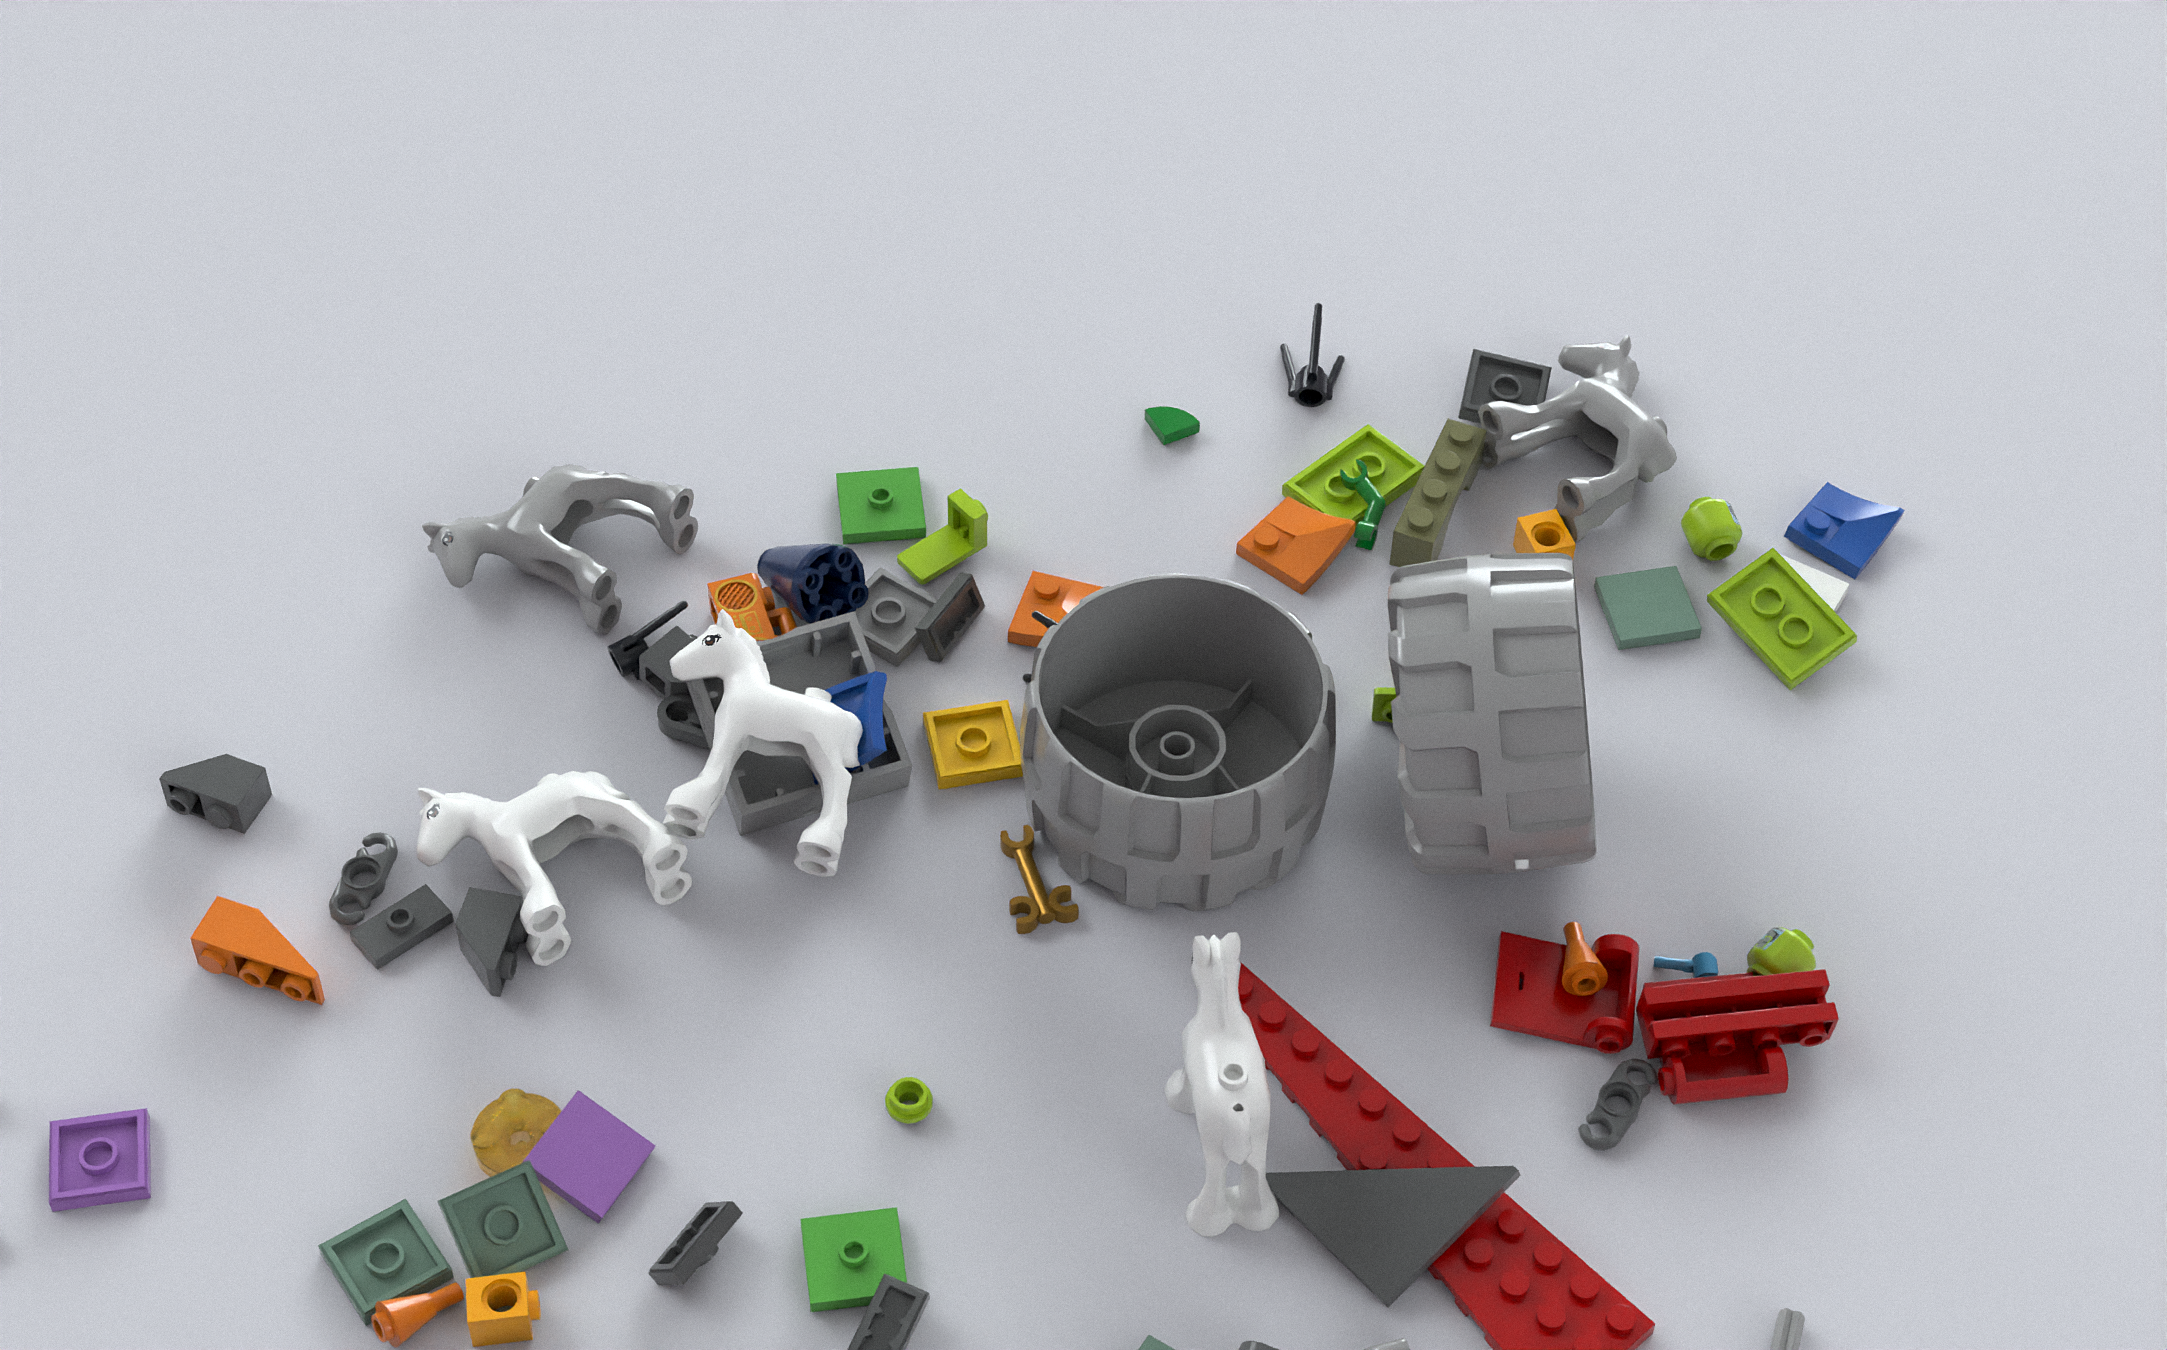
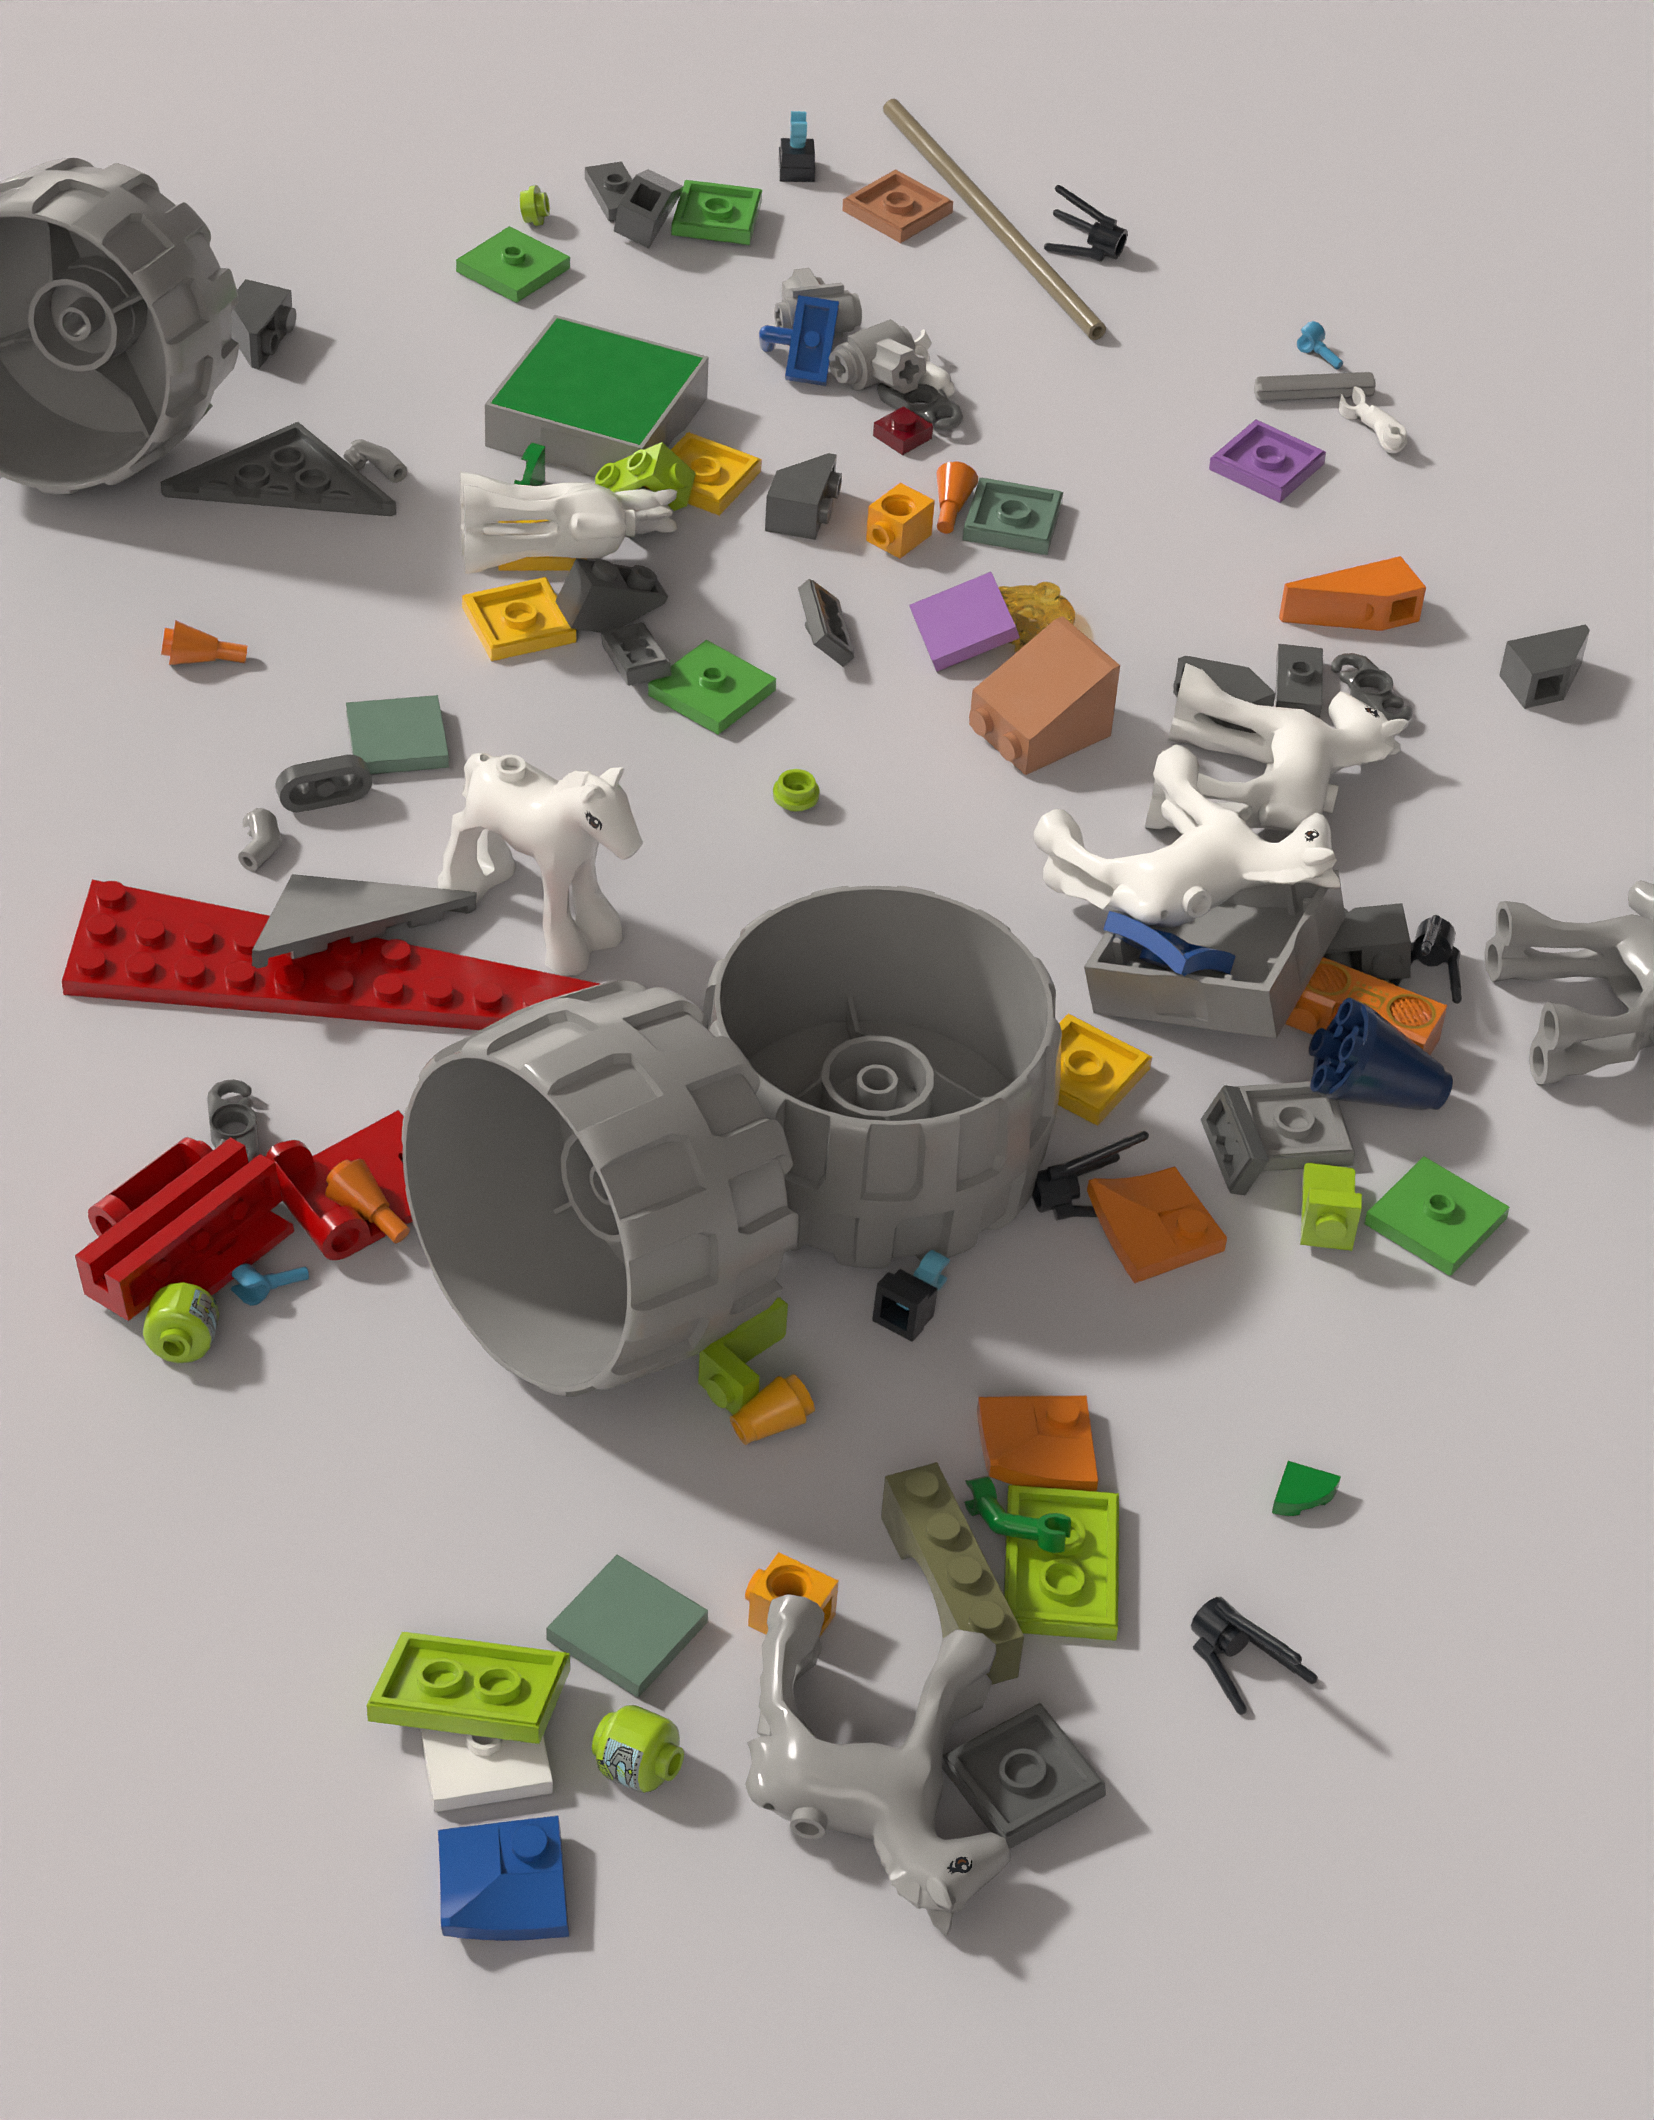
camera: 135 degrees right, 5 degrees down
(503, 1223) = (959, 550): sand green tile -> none
(639, 1016) = (1047, 698): none -> nougat slope

